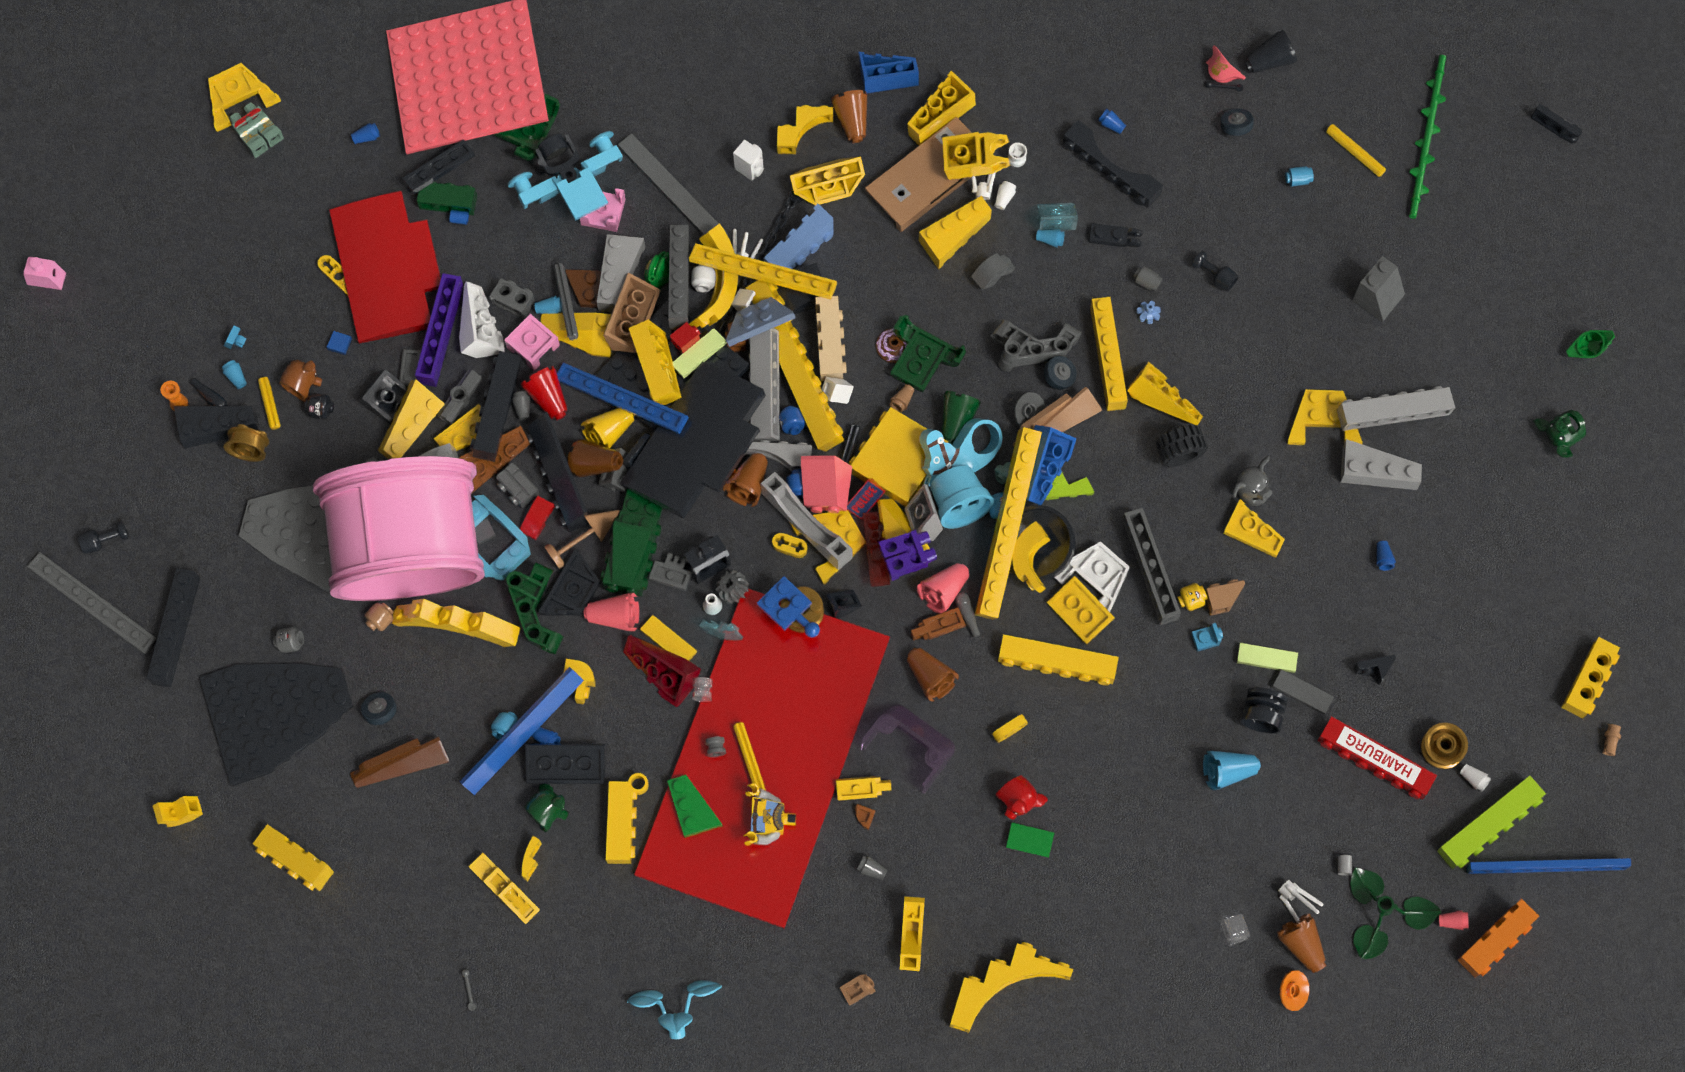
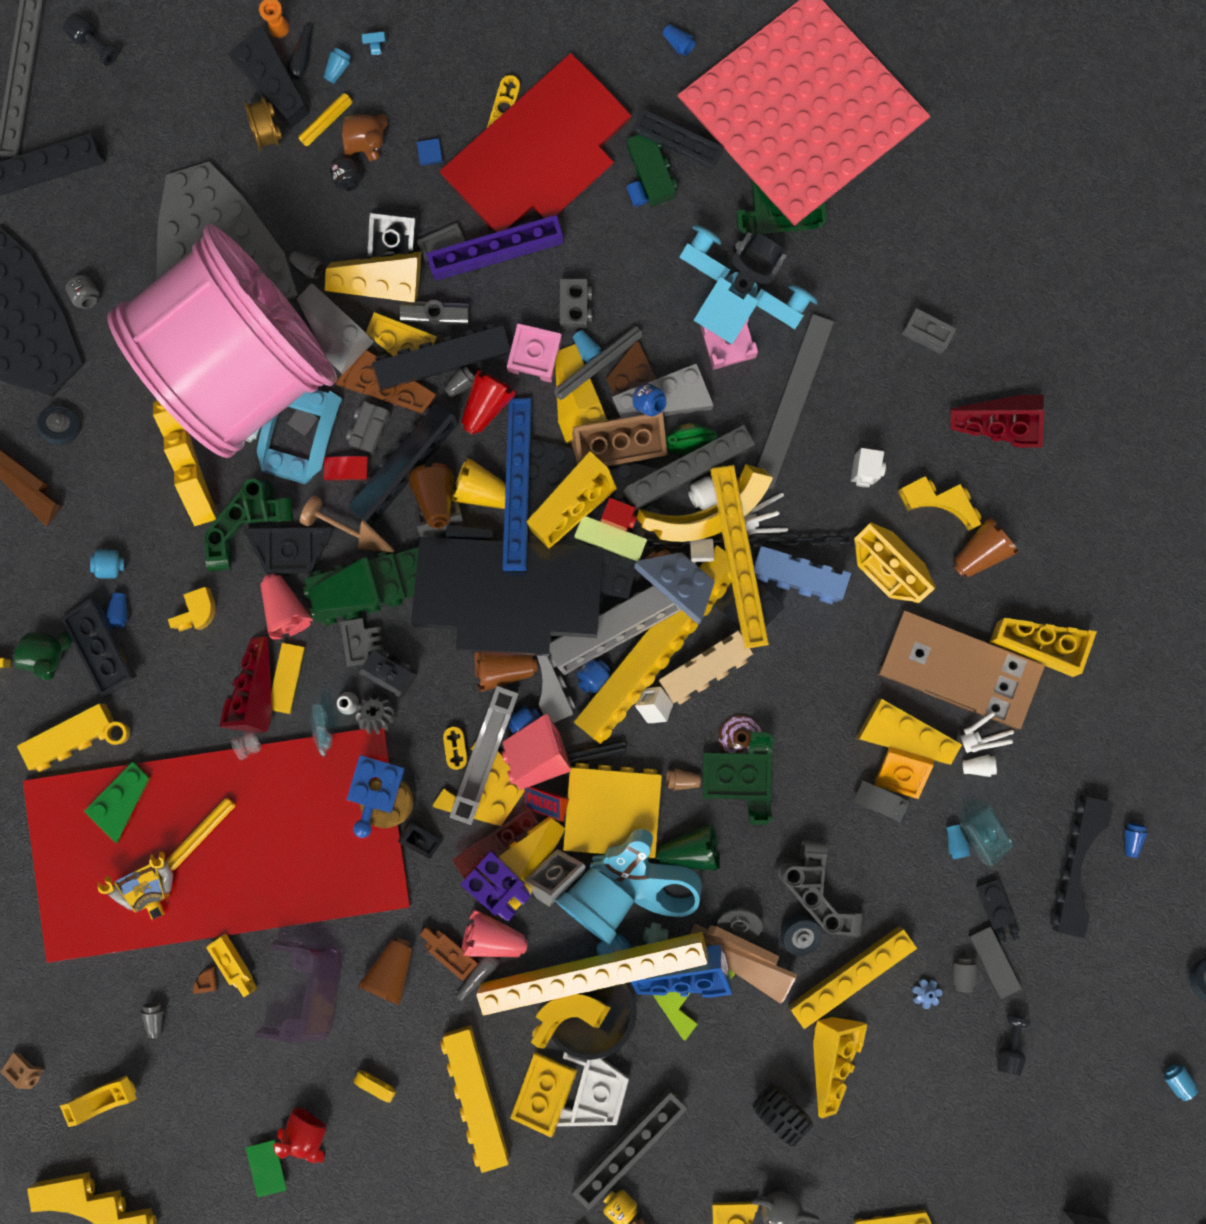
camera: 60 degrees right, 15 degrees up
(477, 328) = (520, 288): white wedge -> none
(521, 731) = (106, 585): tile -> none
(615, 273) = (649, 399): none -> blue head
(676, 75) = (928, 331): none -> dark grey panel
(715, 746) = (192, 792): dark grey wheel -> none
(770, 54) = (1007, 419): none -> dark red wedge
(887, 73) = (1057, 561): blue wedge -> none
(973, 154) = (1009, 718): yellow brick -> none
(980, 244) = (904, 772): none -> light orange tile
(1017, 150) = (1041, 755): white wheel -> none
(1149, 255) = (995, 962): none -> dark grey tile

